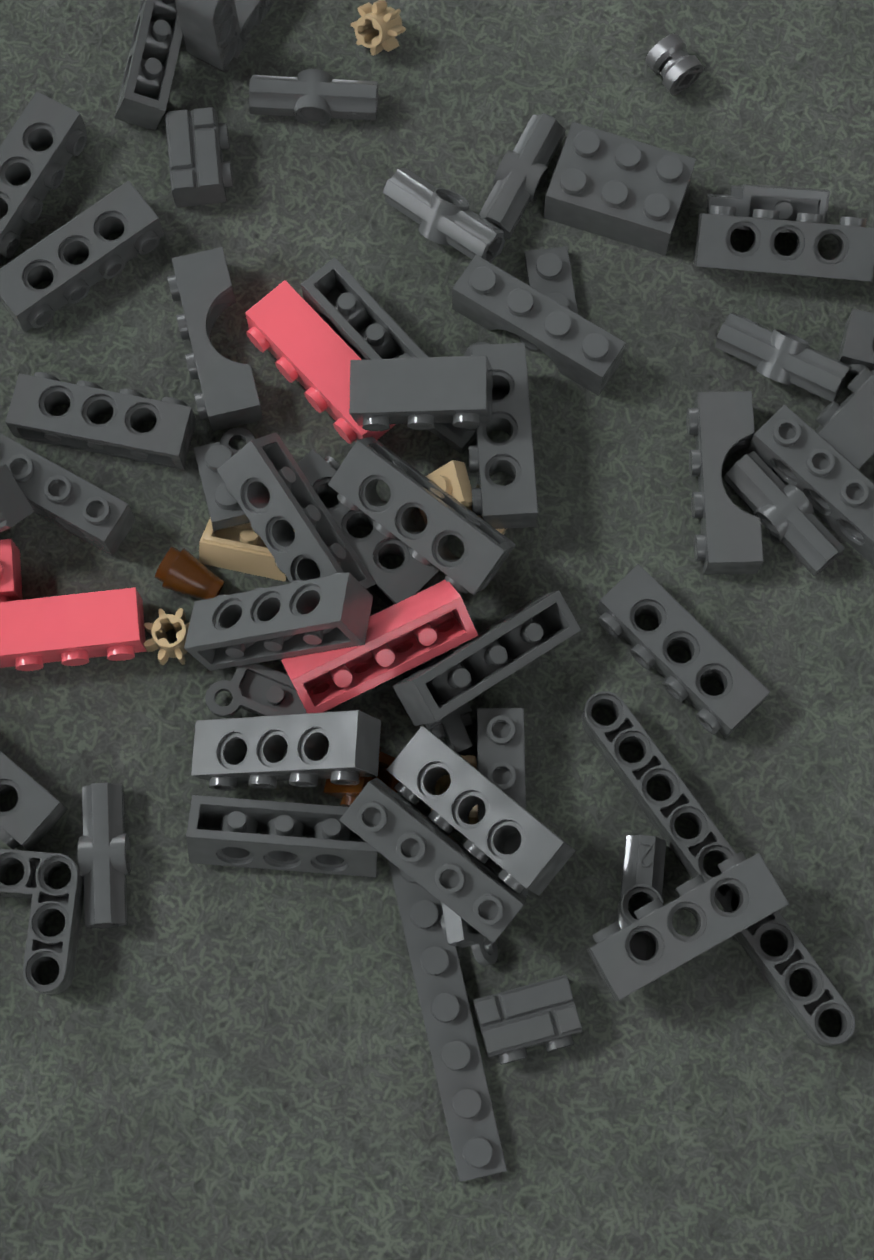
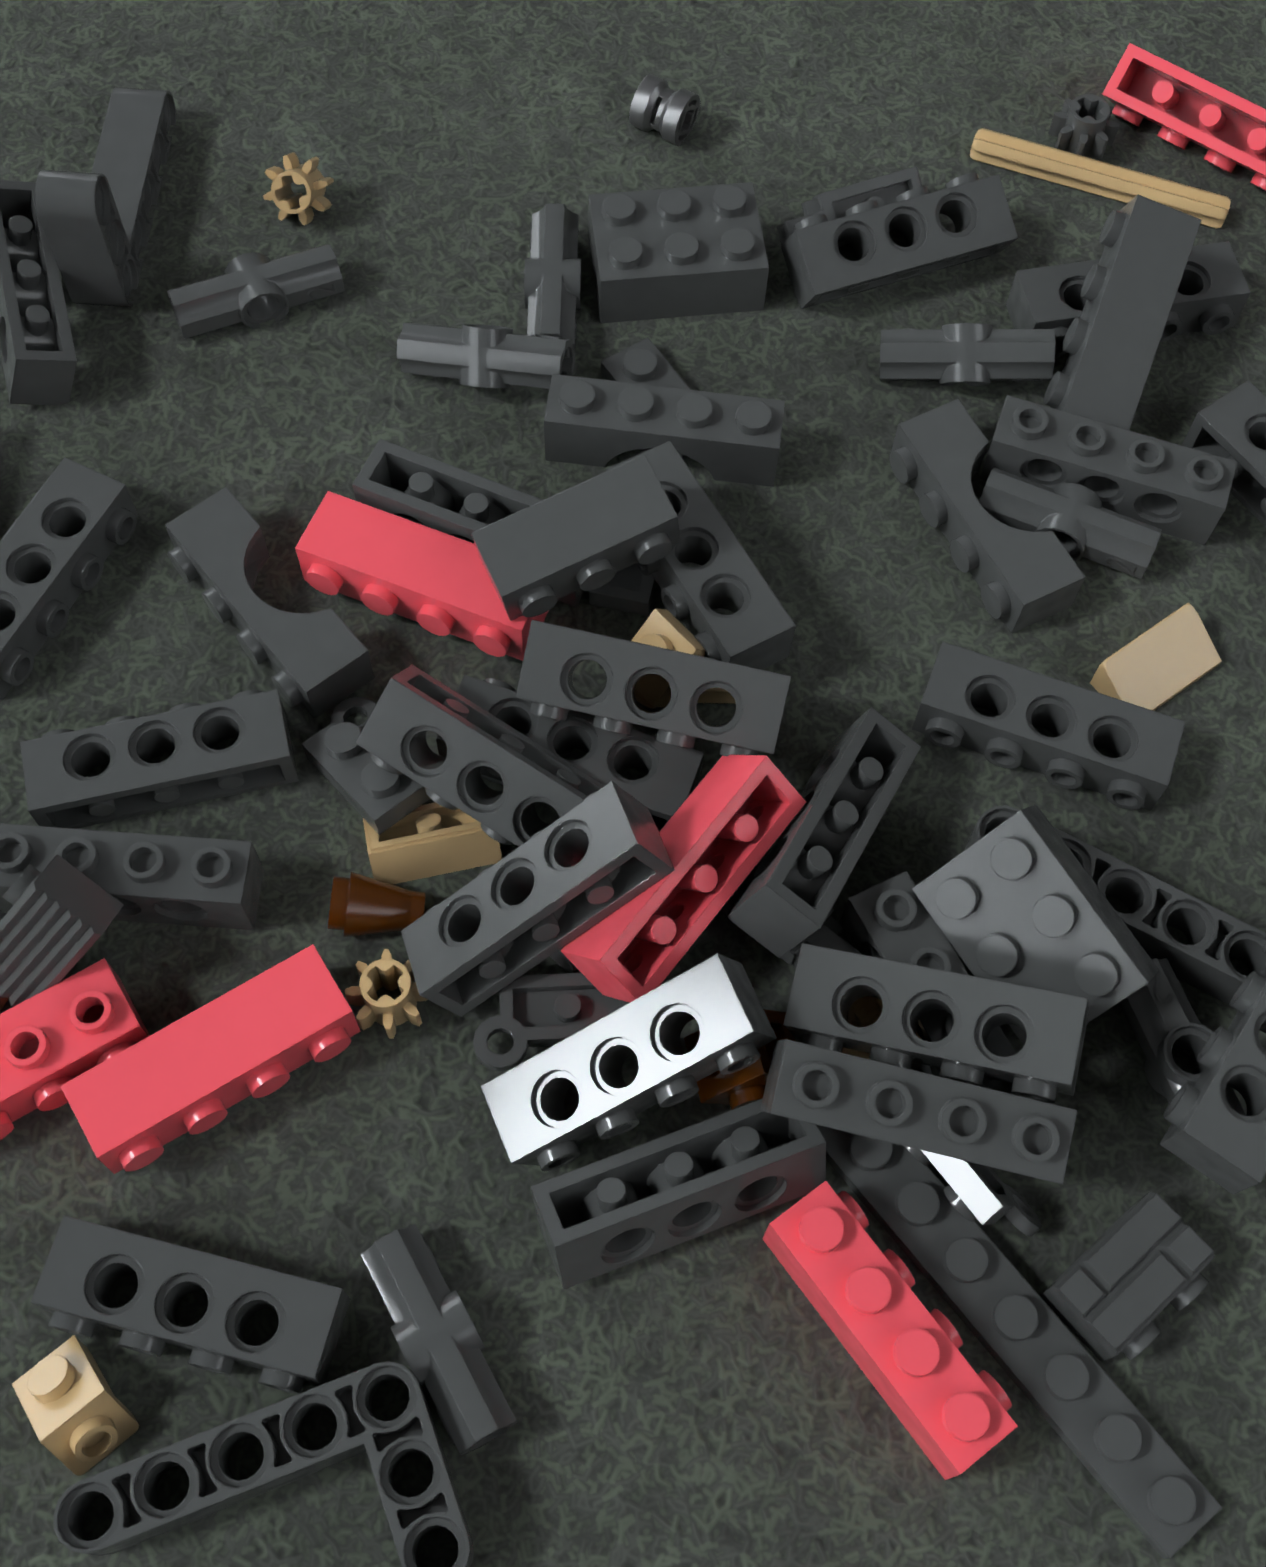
camera: 30 degrees left, 10 degrees down
(196, 157) = (140, 406): dark grey brick -> none
(363, 977) = (888, 1330): none -> coral brick
(585, 778) = (1034, 917): none -> dark grey brick
(787, 642) = (1159, 661): none -> tan slope

